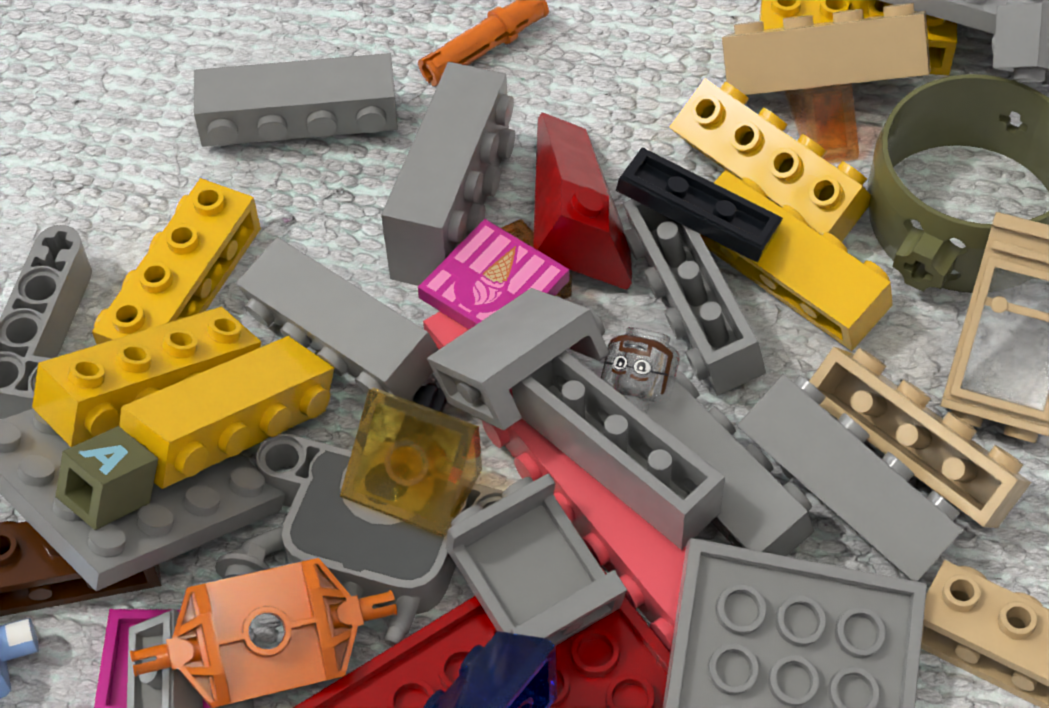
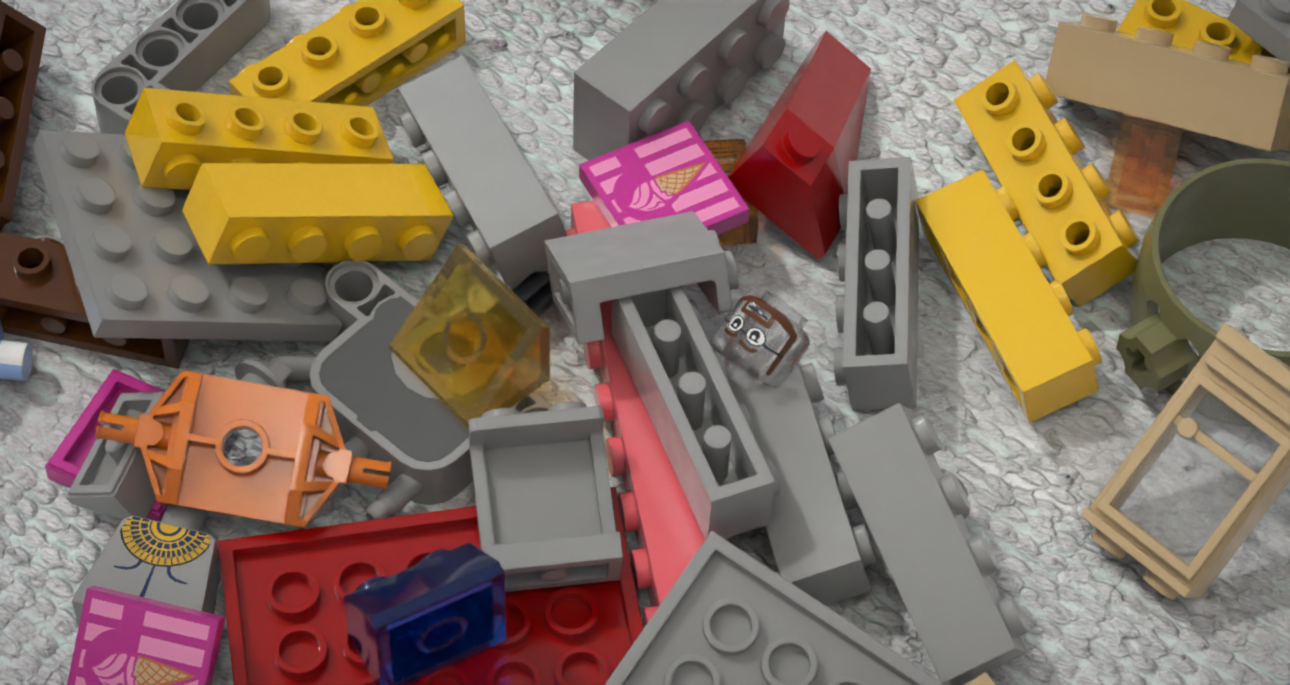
camera: 20 degrees right, 0 degrees up
(106, 477) = (154, 228): olive brick -> none
(699, 204) = (925, 194): black tile -> none
(932, 447) = (1035, 539): tan brick -> none

